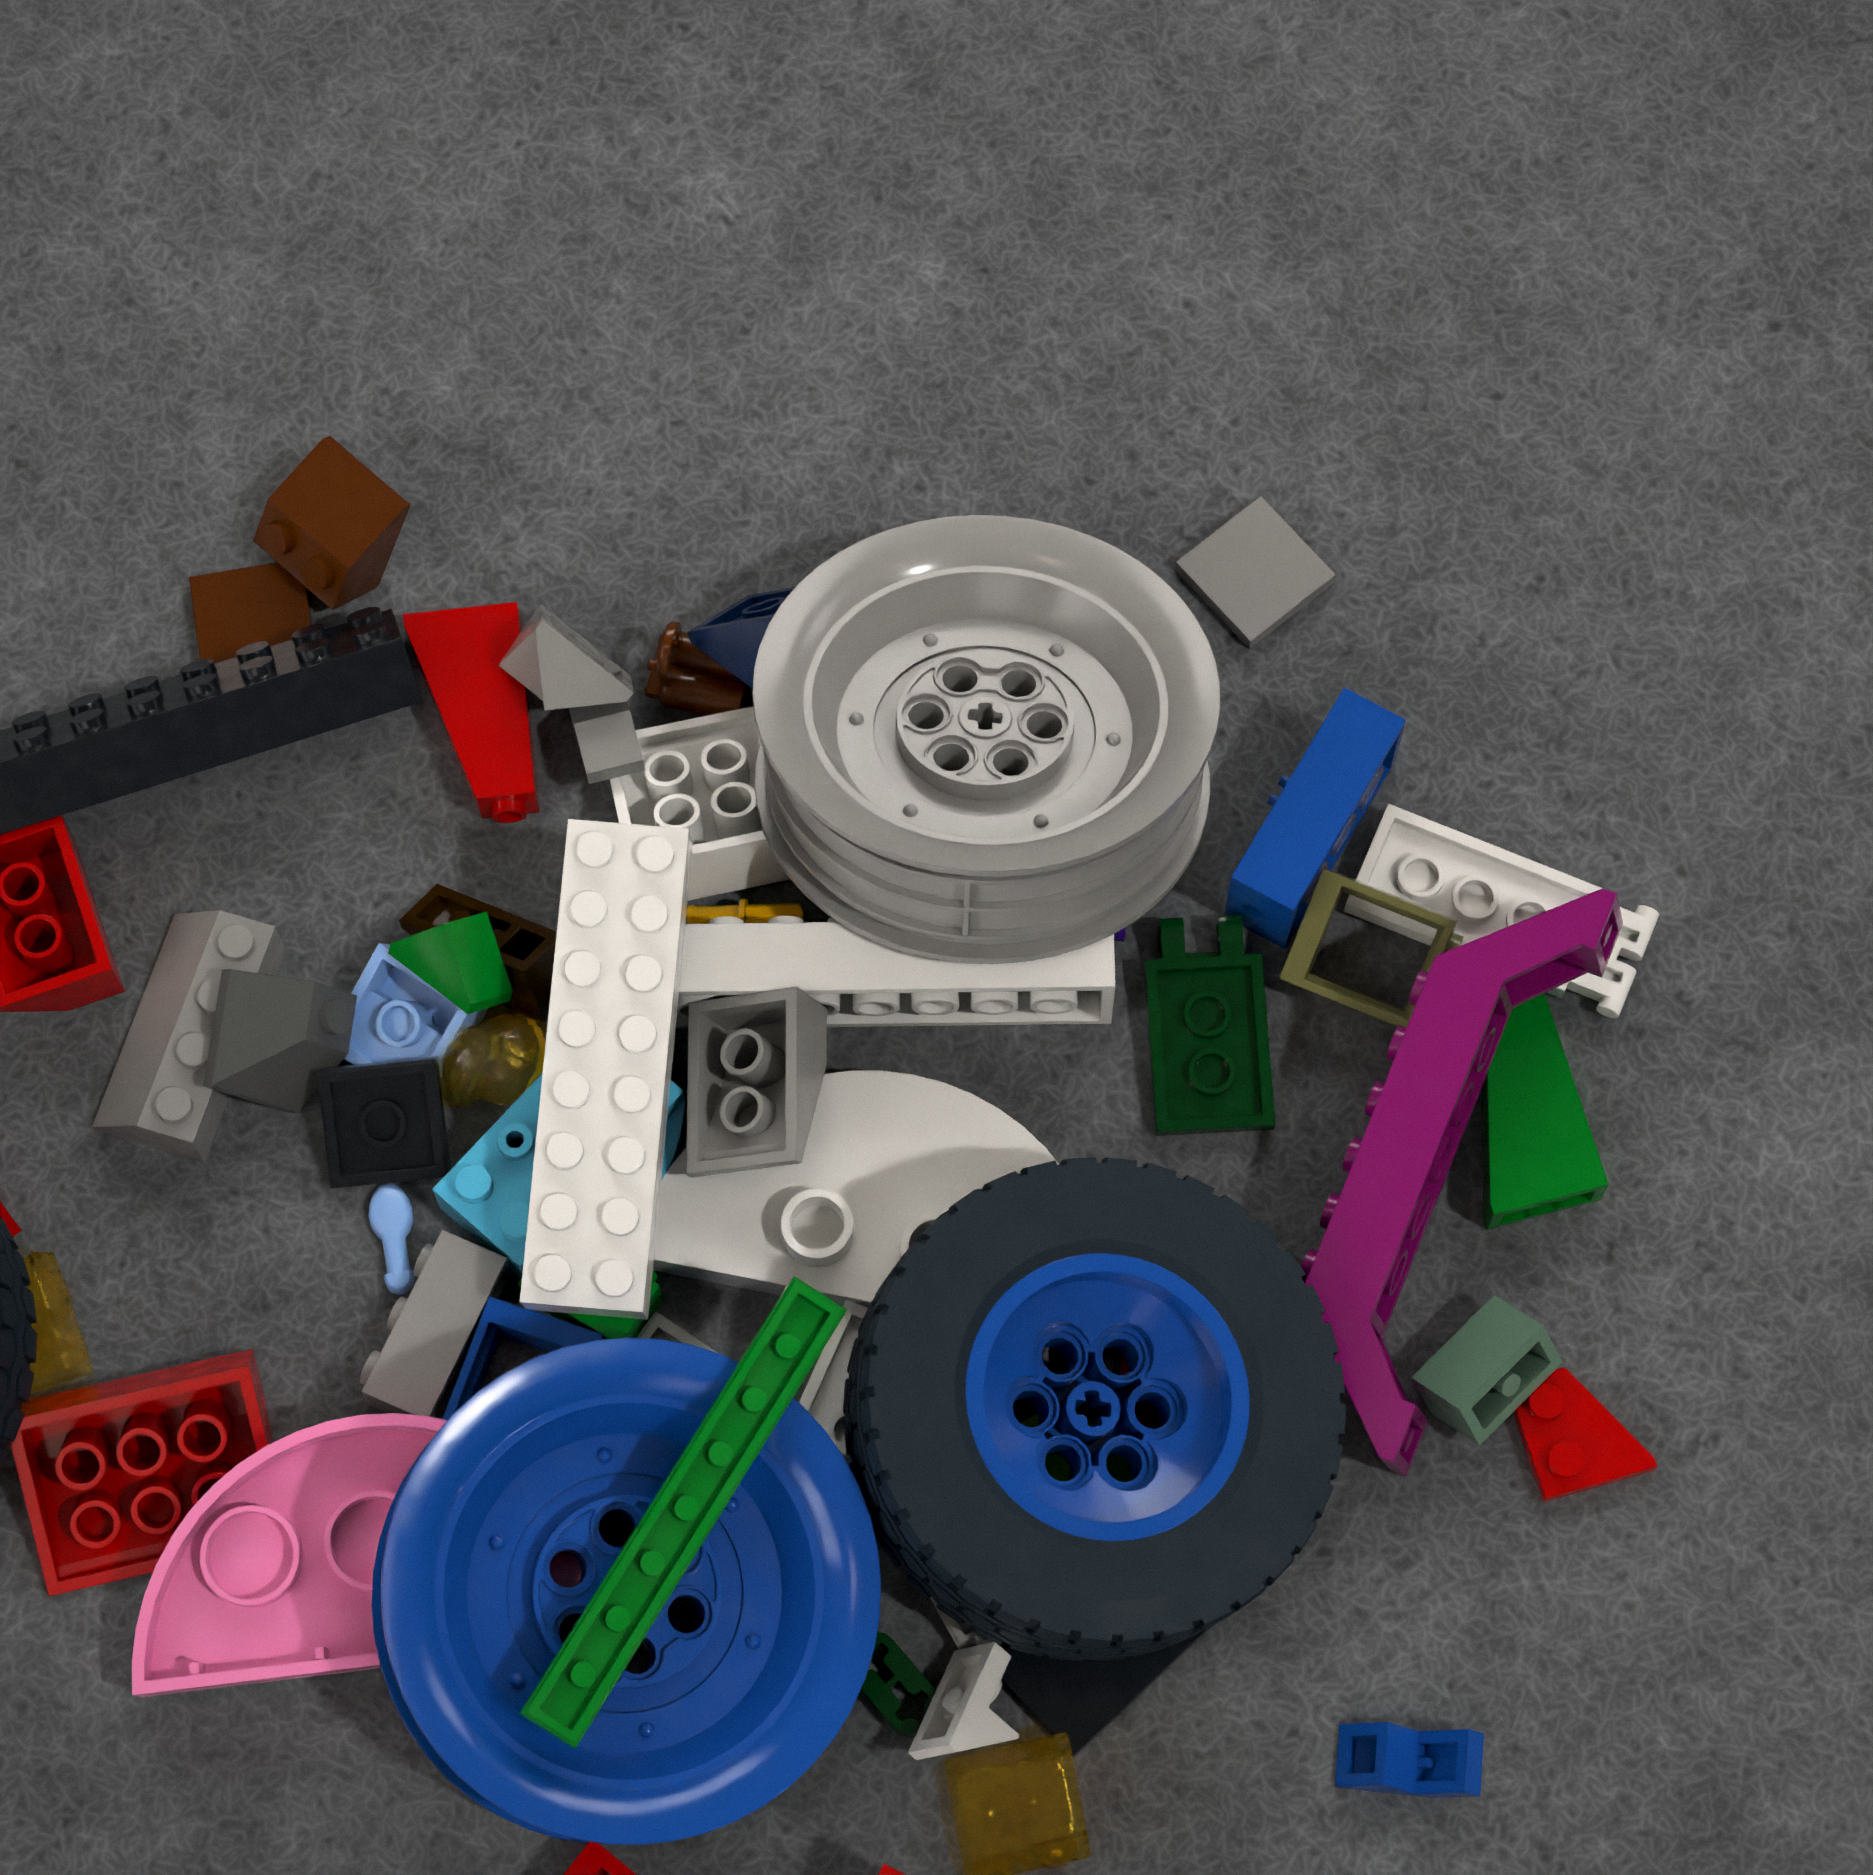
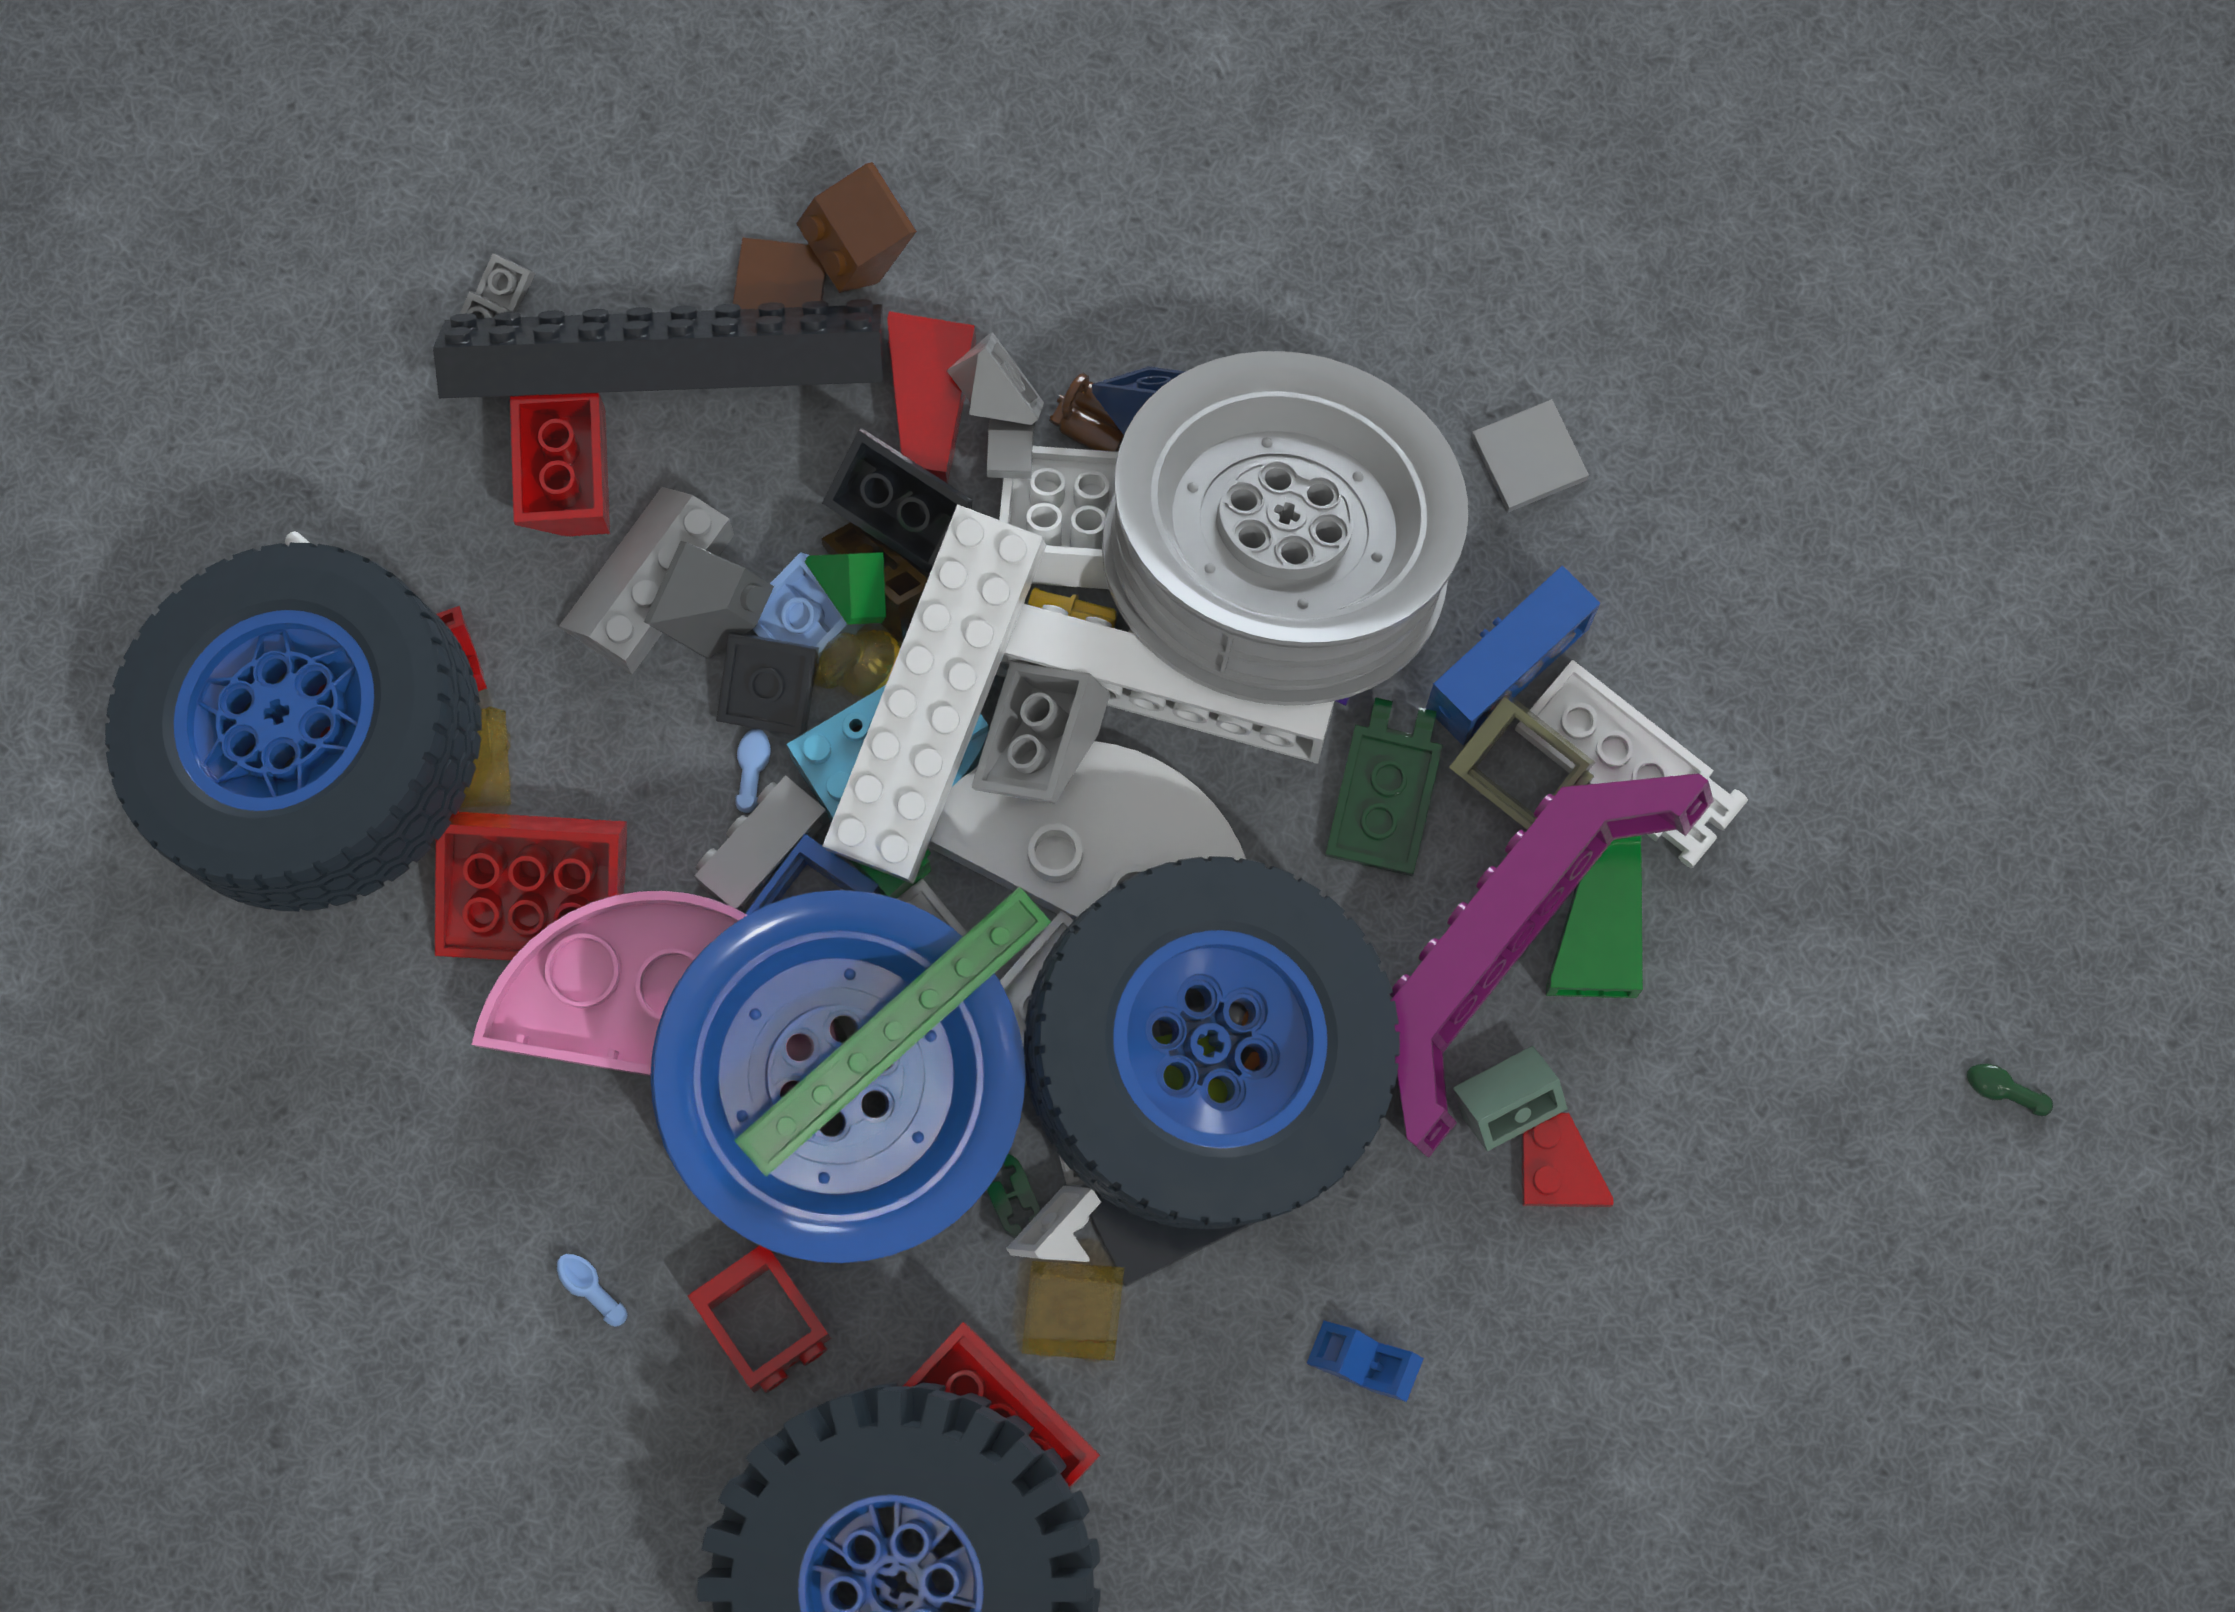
camera: 15 degrees right, 5 degrees up
(481, 843) = (894, 499): none -> black slope

